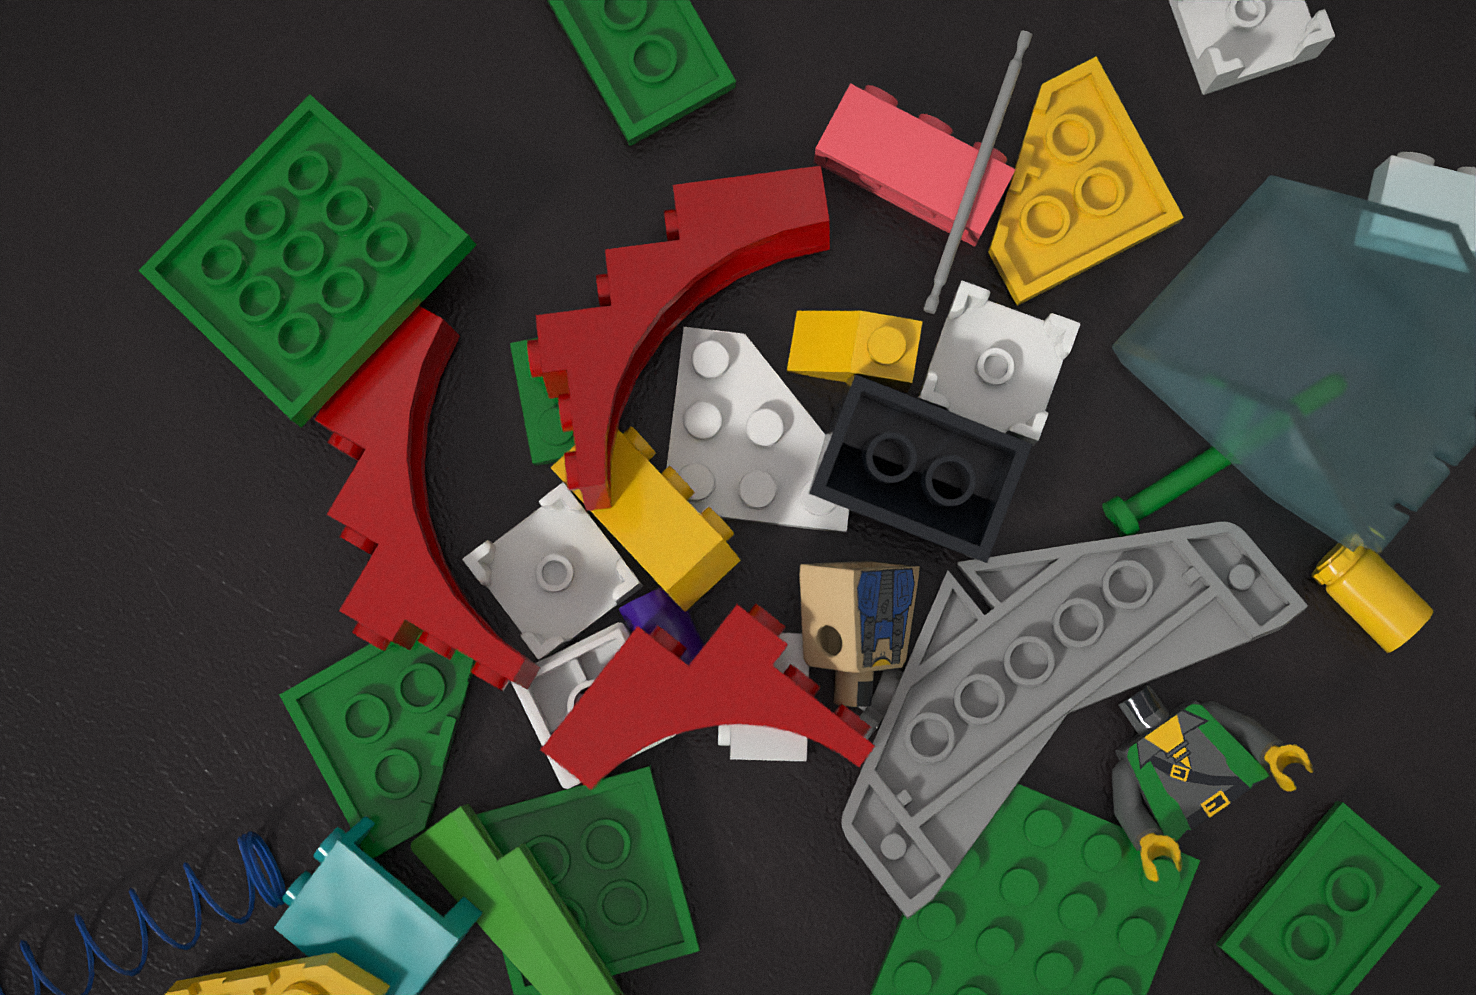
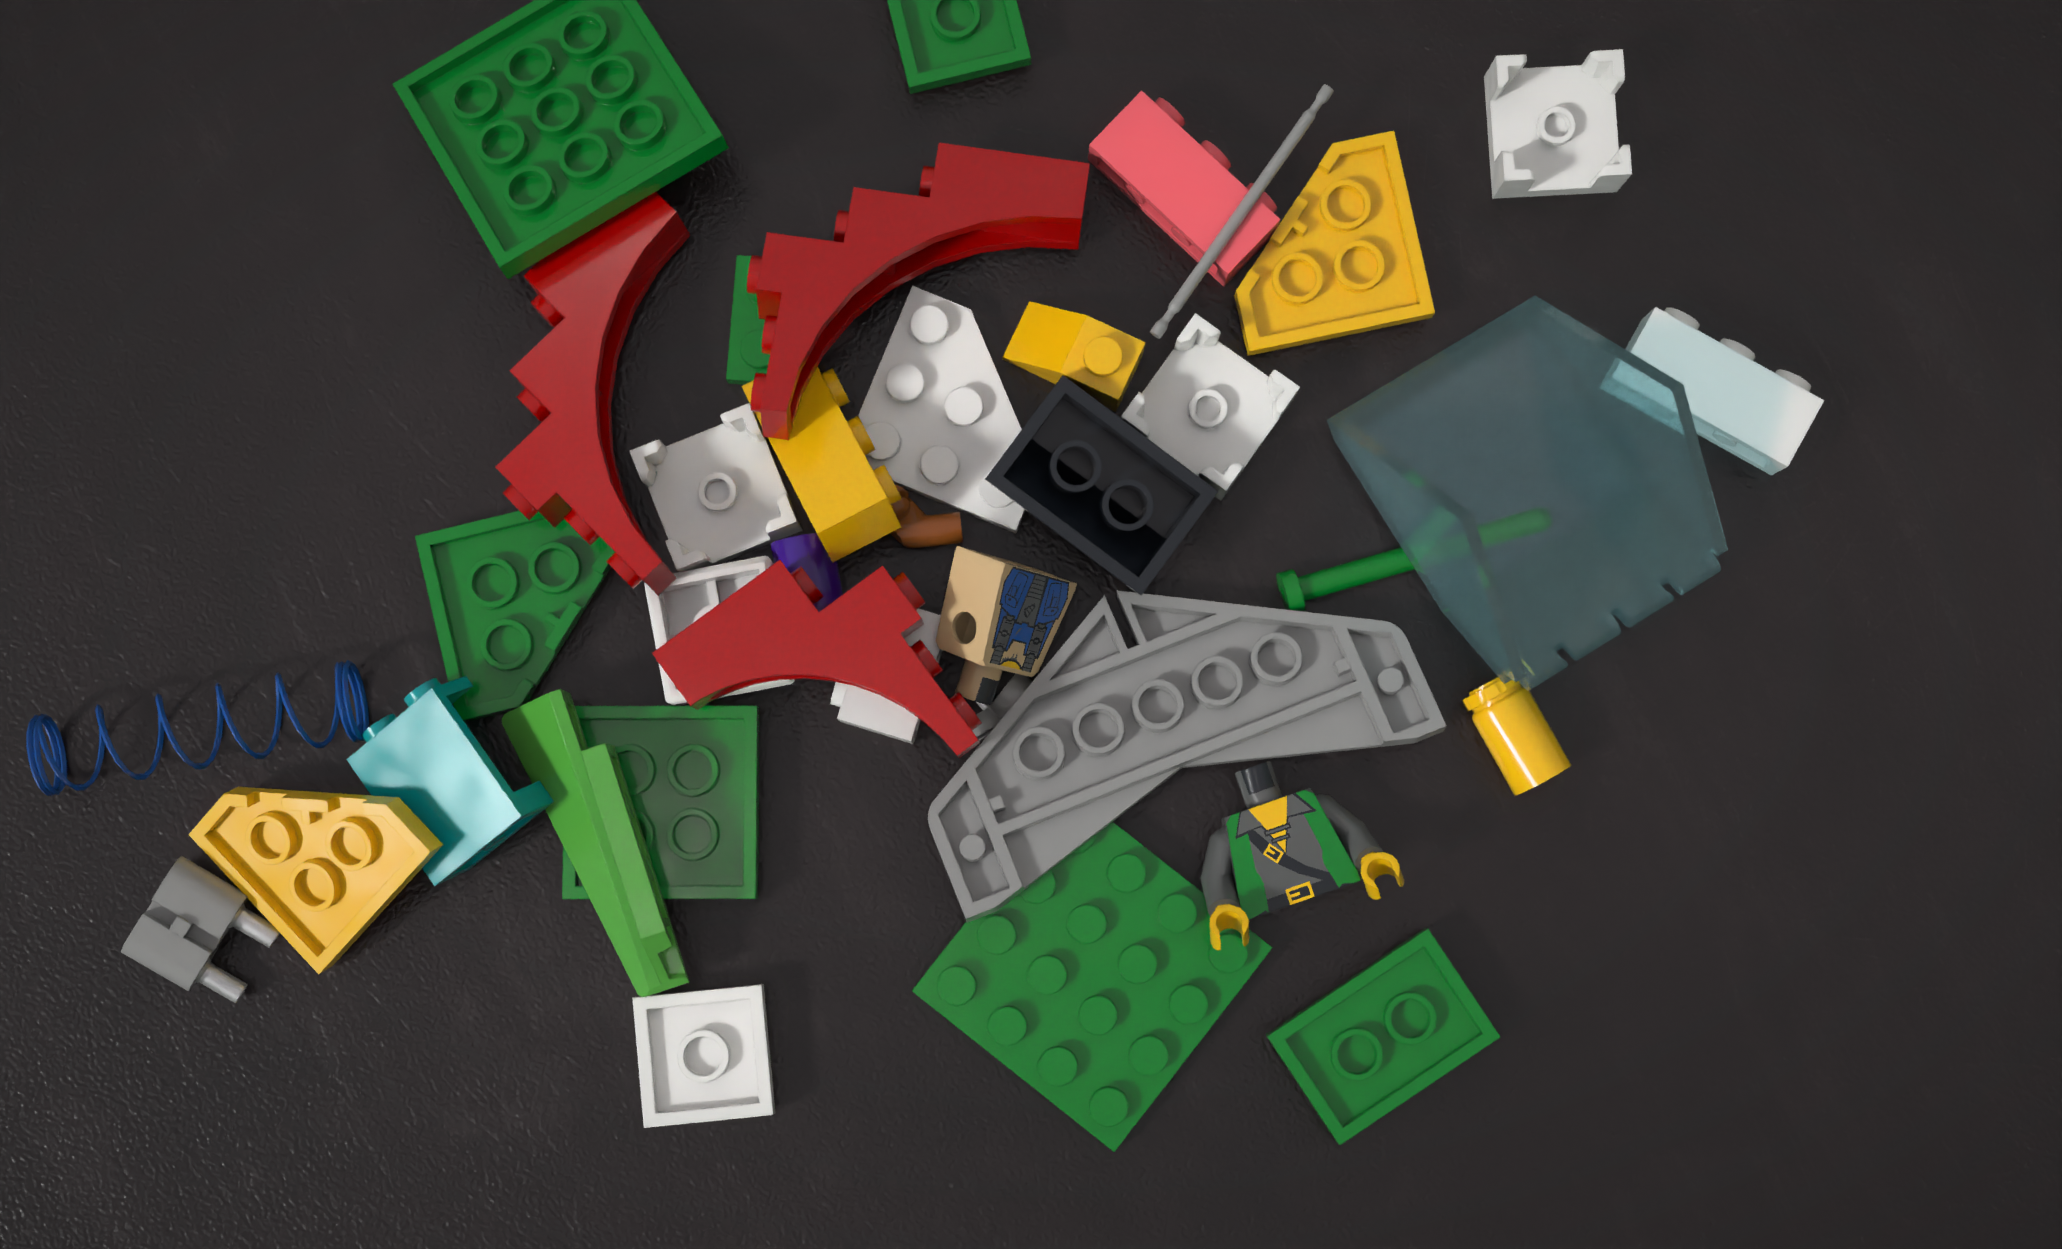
camera: 10 degrees right, 0 degrees up
(763, 553) = (924, 530): none -> dark orange arm

